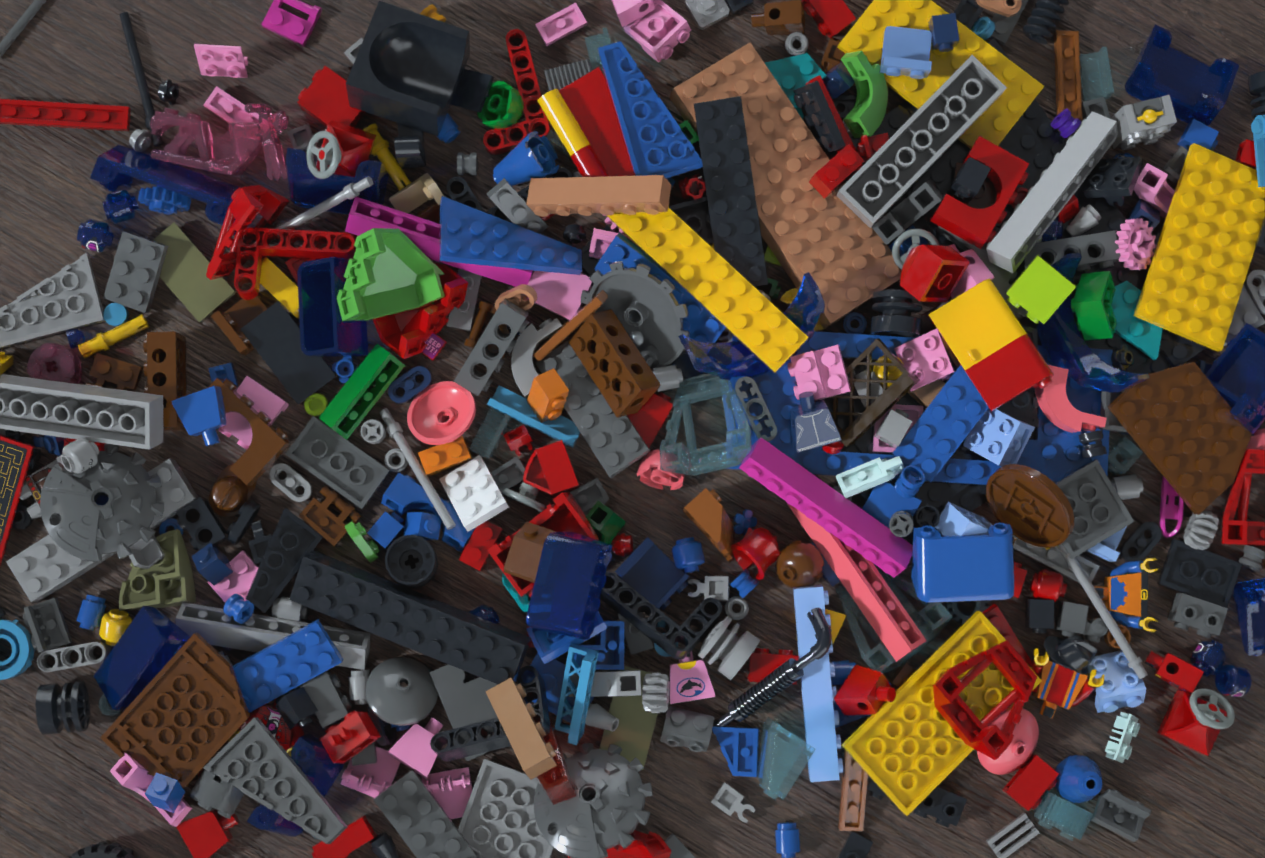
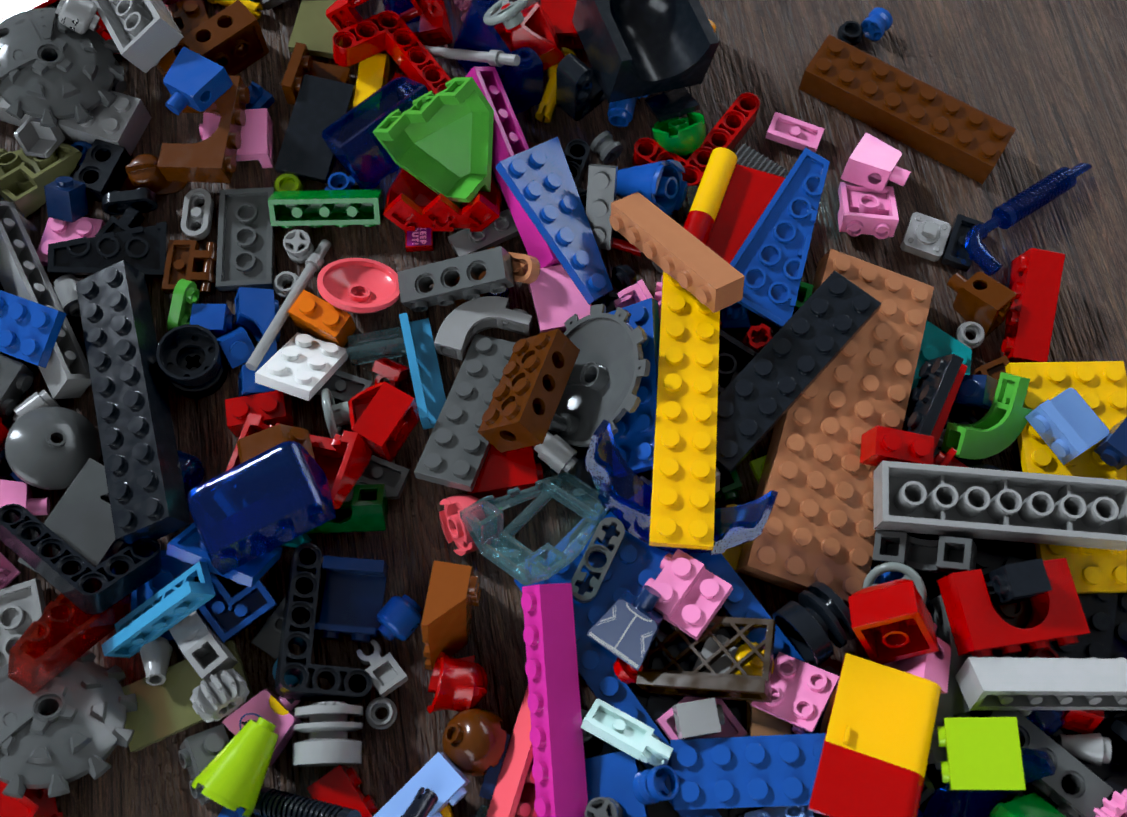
camera: 50 degrees right, 15 degrees down
(238, 608) = (33, 245): blue wheel -> none
(409, 384) = (368, 245): dark blue plate -> none
(416, 194) = (542, 127): tan bracket -> none
(521, 729) = (64, 577): medium nougat brick -> none
(548, 395) = (450, 359): orange brick -> none
(571, 325) = (527, 328): dark orange tile -> none
(622, 545) = (360, 545): red plate -> none
(710, 708) = (240, 767): none -> lime cone
(744, 522) = (478, 648): blue plant -> none
(744, 583) = (412, 699): blue wheel -> none
(857, 317) = (773, 592): blue plate -> none

